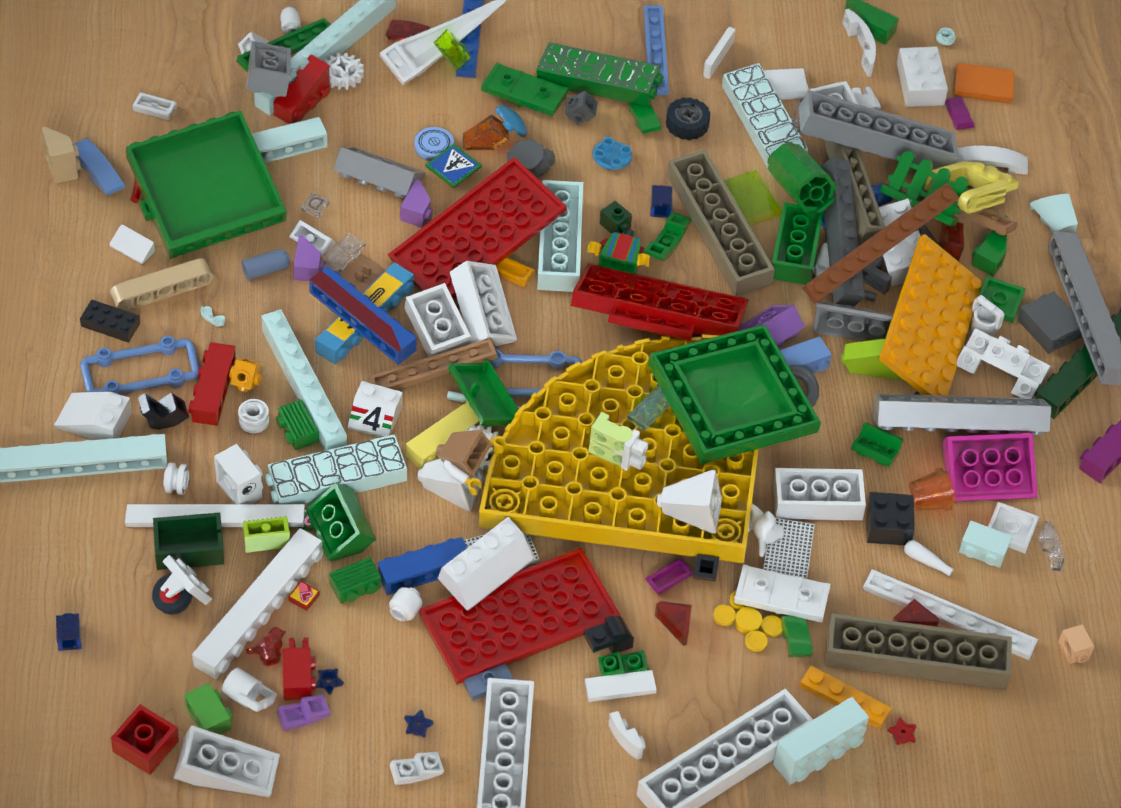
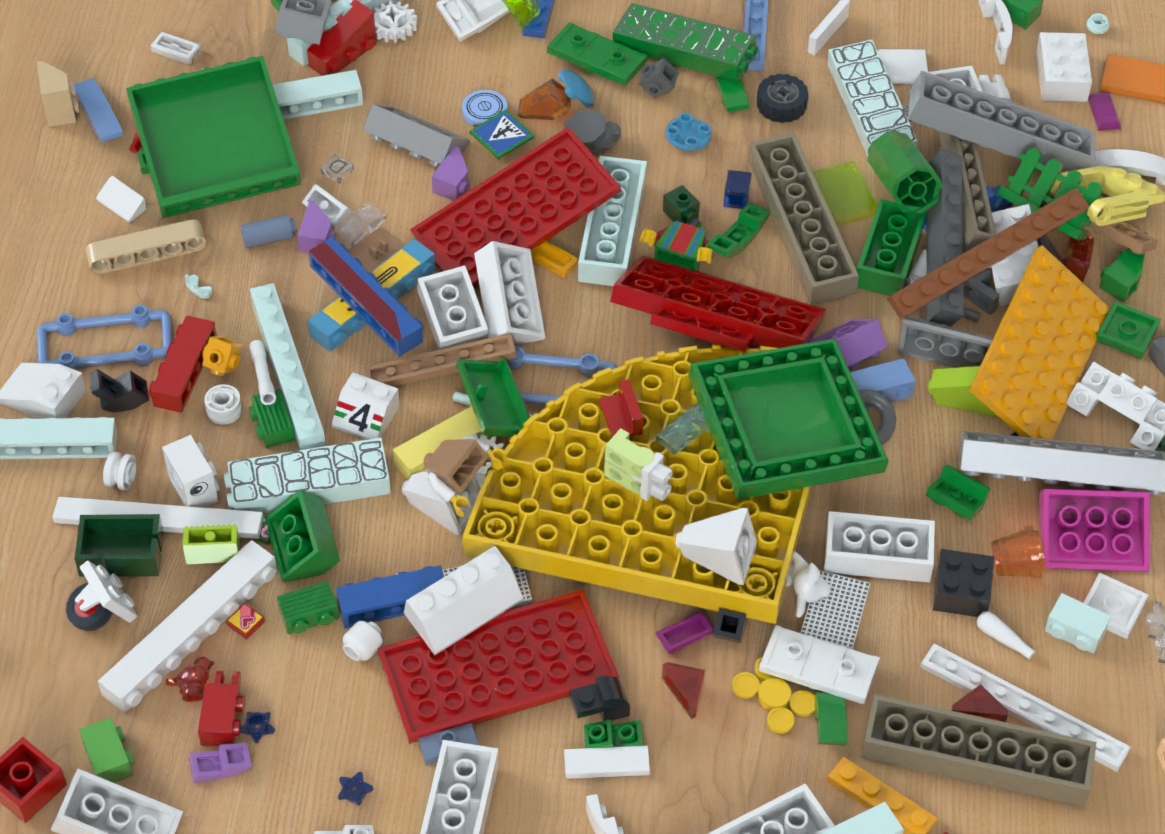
camera: 10 degrees right, 0 degrees up
(110, 321) = (80, 283): black piece -> none
(245, 689) = (155, 730): white piece -> none
(289, 397) = (265, 387): none -> white piece
(597, 397) = (623, 411): none -> red panel
(987, 317) = (1108, 350): white piece -> none

